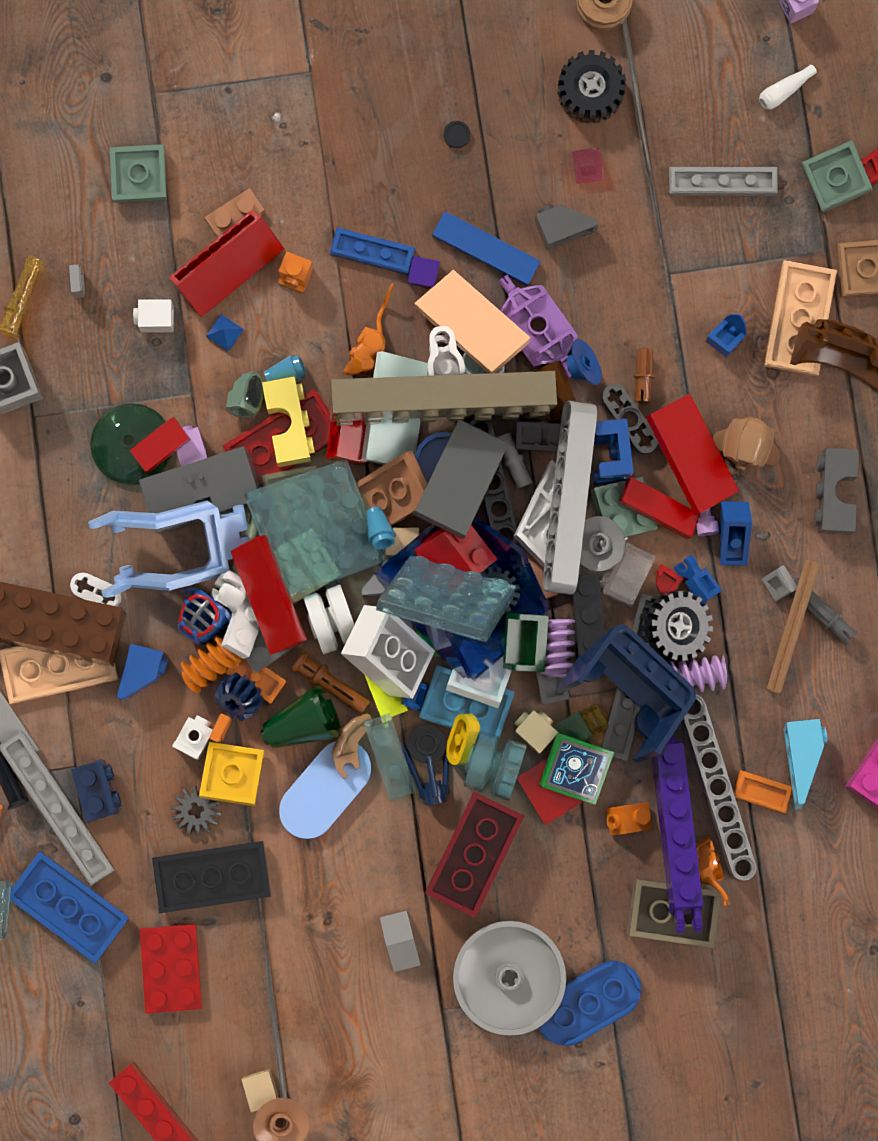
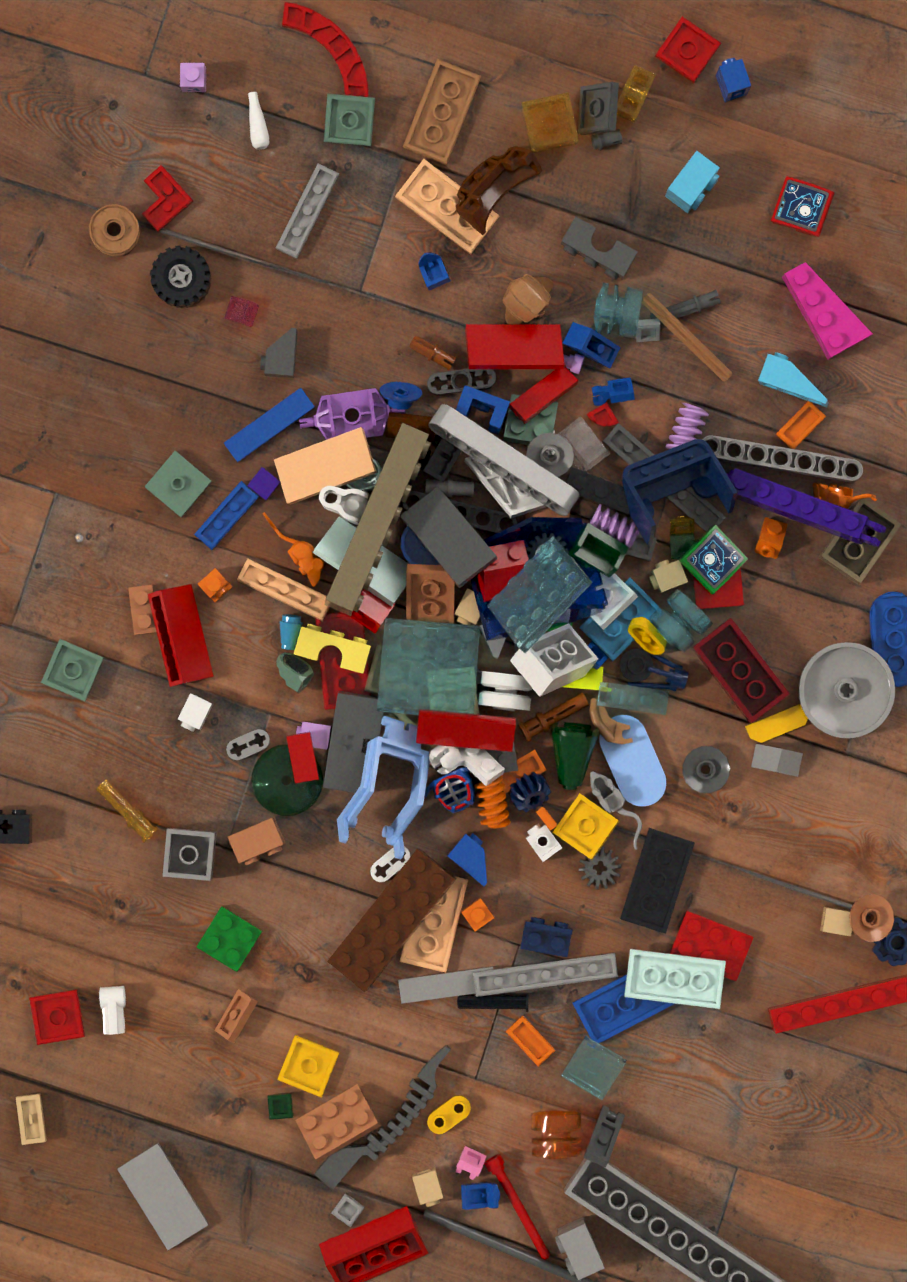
camera: 60 degrees left, 5 degrees up
(57, 444) = (257, 840): none -> nougat brick
(77, 281) = (136, 760): light grey tile -> none
(85, 706) = (477, 914): none -> orange brick
(116, 946) = (674, 978): none -> light aqua tile
(144, 391) = (245, 739): none -> light grey beam
(224, 332) = (234, 664): blue slope -> none
(273, 786) = (612, 799): none -> light grey animal
(325, 342) = (283, 589): none -> light nougat tile
(342, 881) = (718, 771): none -> dark grey dish
(379, 529) = (455, 619): dark azure cone -> none
(380, 187) = (178, 484): none -> sand green plate
(437, 922) = (777, 724): none -> yellow piece
(456, 134) = (164, 402): black piece -> none
(663, 41) = (171, 199): none -> red tile
(688, 621) = (653, 427): wheel -> none
(784, 541) = (618, 310): none -> clear light blue wheel

